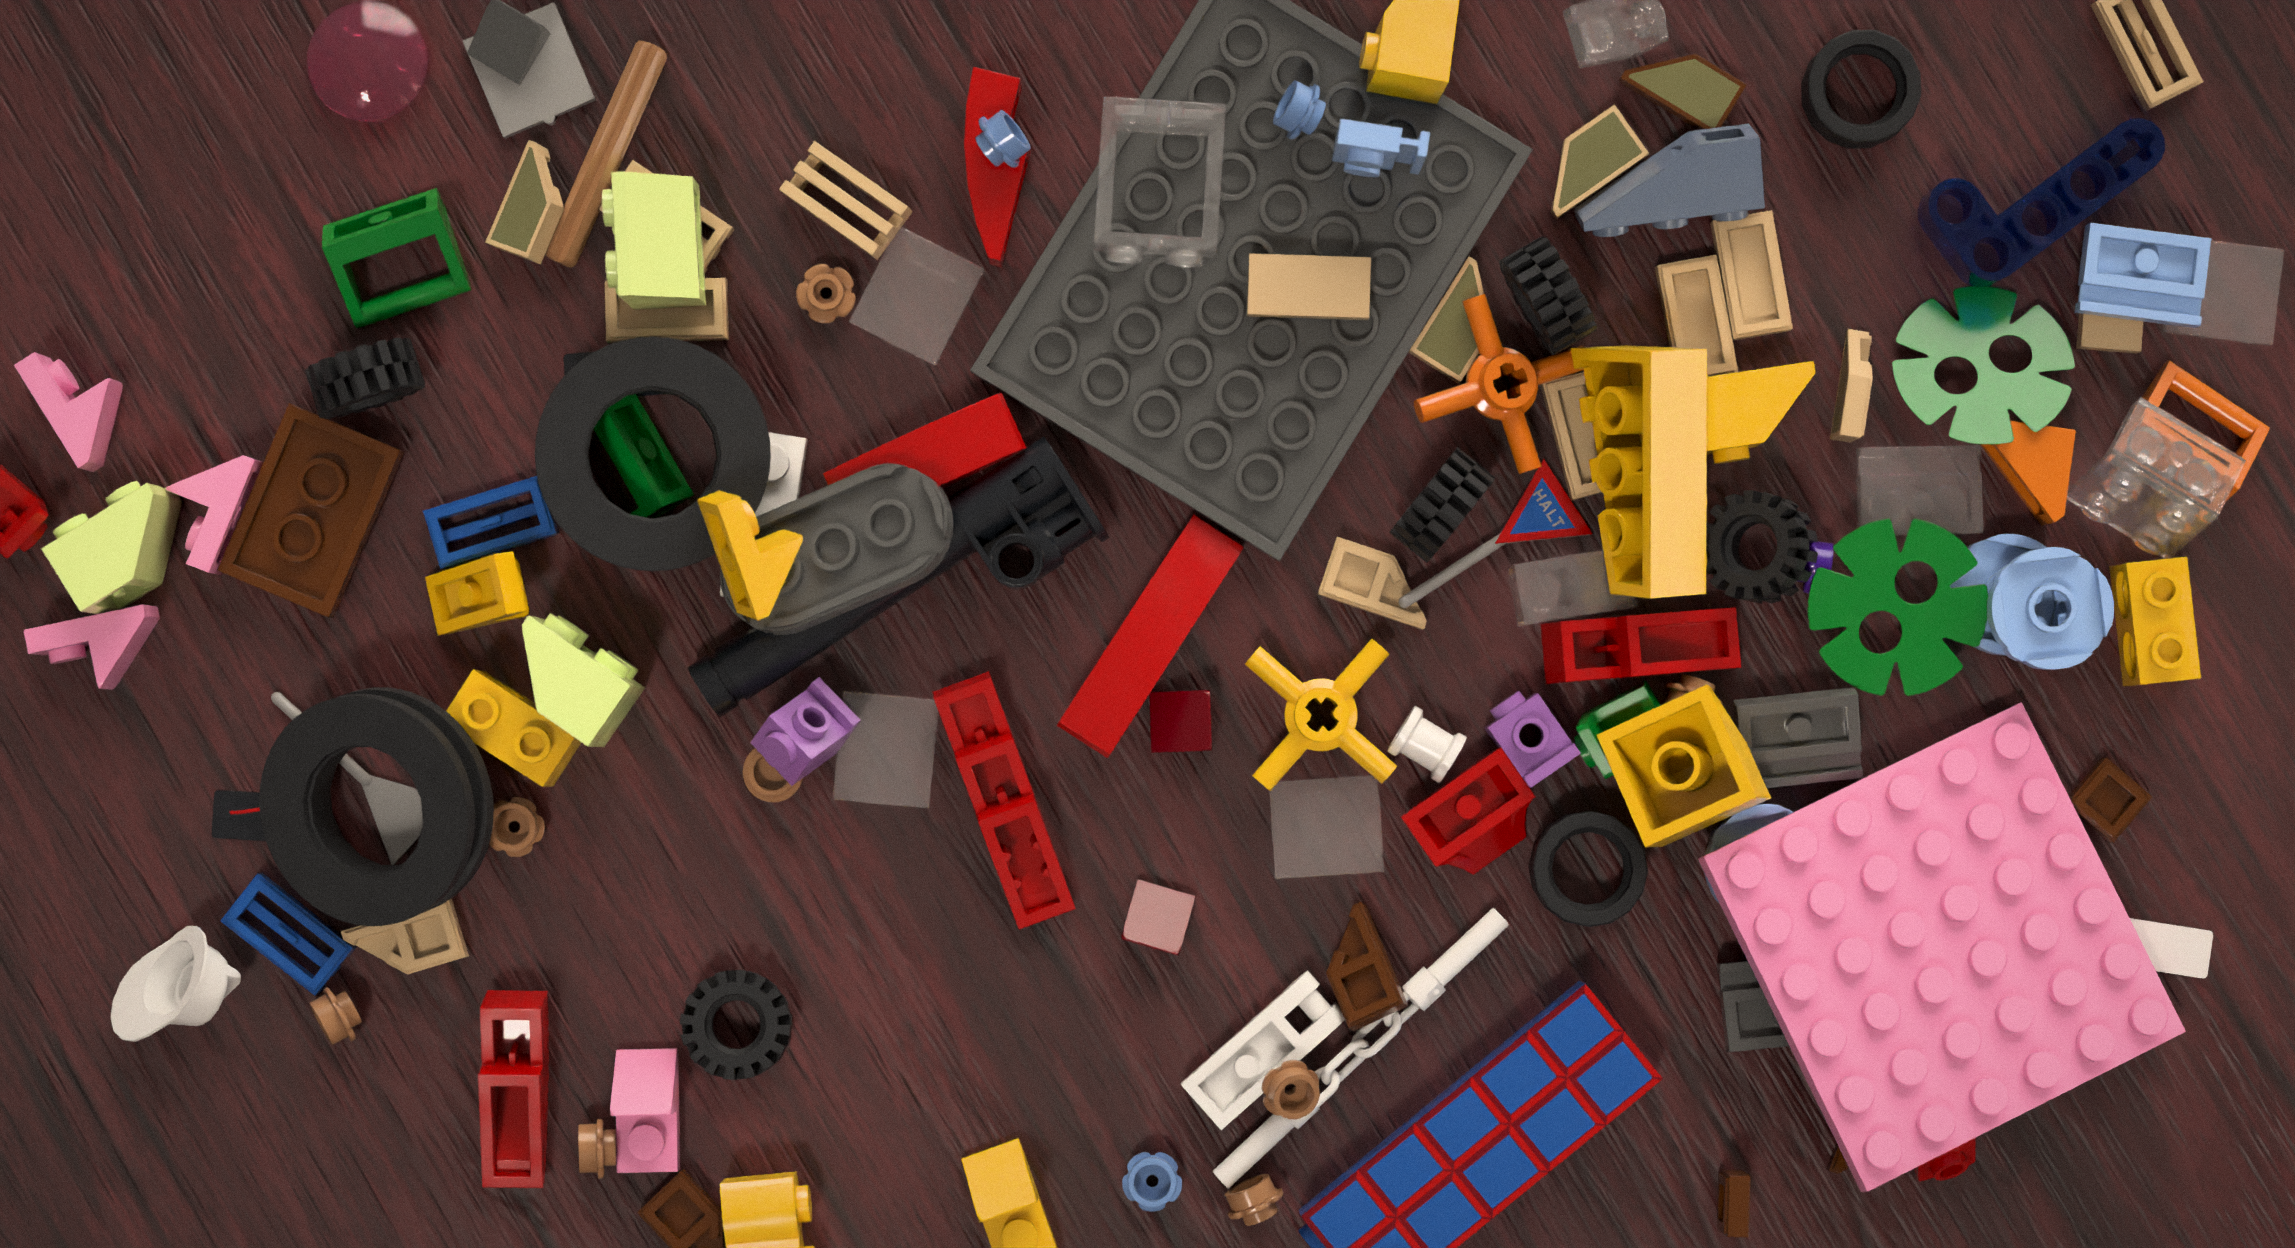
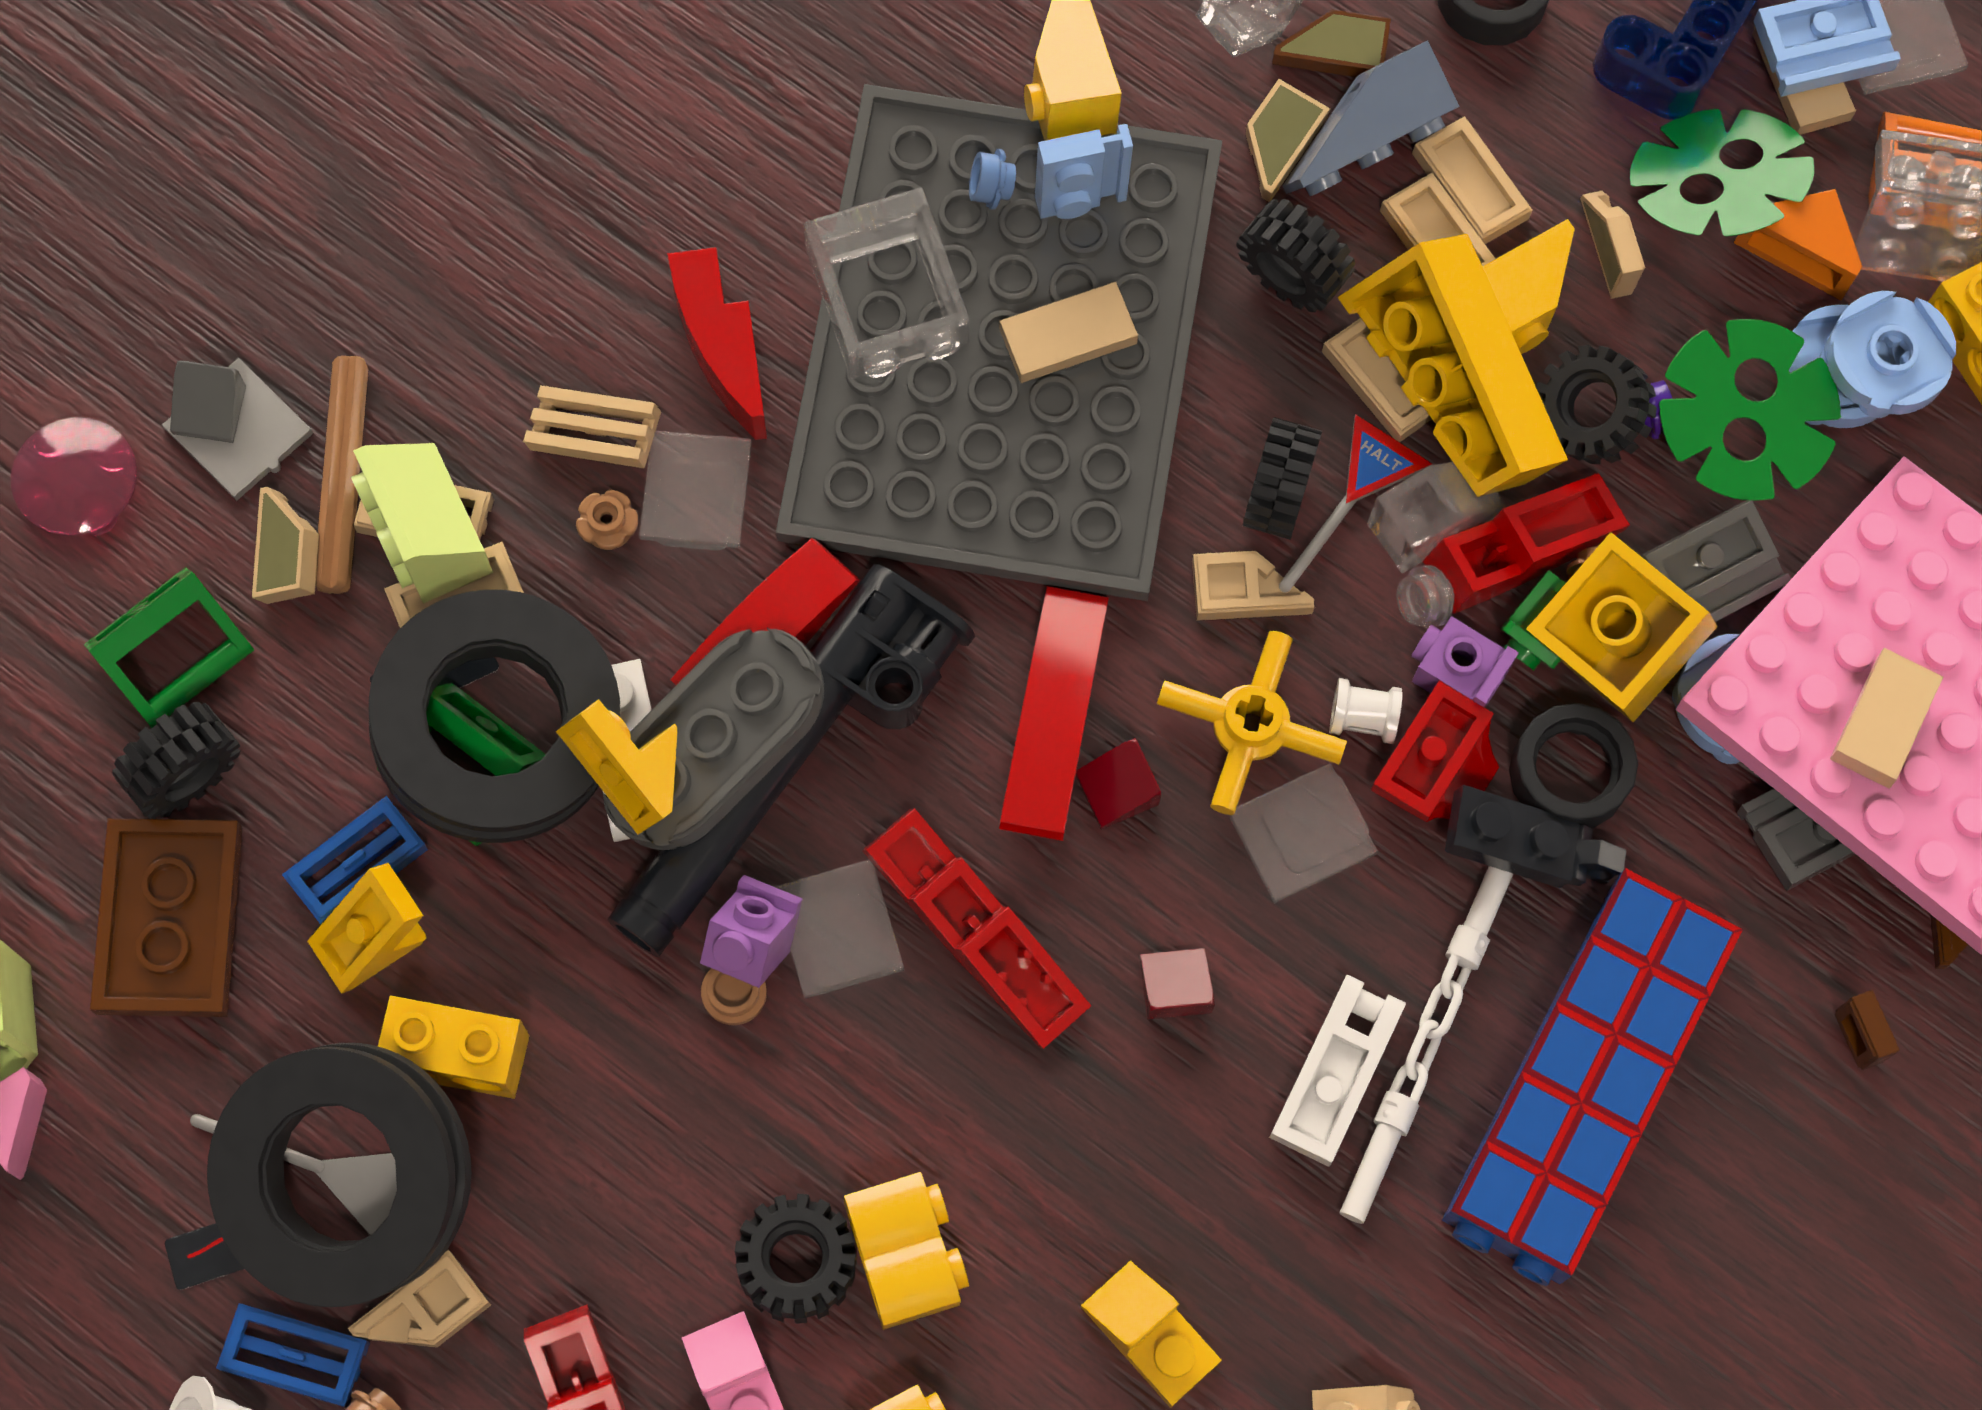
camera: 25 degrees left, 15 degrees down
(225, 493) = (66, 933): bright pink slope -> none
(531, 827) = (508, 1145): medium nougat plate -> none
(574, 685) = (505, 967): yellowish green slope -> none
(828, 1056) = (904, 1249): none -> yellow brick
(1002, 139) = (722, 300): medium blue plate -> none
(1154, 1197) = (1288, 1229): medium blue plate -> none
(1253, 1199) = (1394, 1223): medium nougat plate -> none
(1300, 1099) = (1398, 1095): medium nougat plate -> none
(1363, 973) = (1404, 954): reddish brown tile -> none
(1447, 337) = (1221, 326): olive tile -> none
(1480, 391) = (1285, 356): orange bar -> none
(1514, 920) = (1528, 841): none -> black hinge
(1526, 662) = (1425, 597): none -> clear plate
(1872, 950) = (1886, 718): none -> tan tile
(1921, 484) = (1713, 293): clear plate -> none

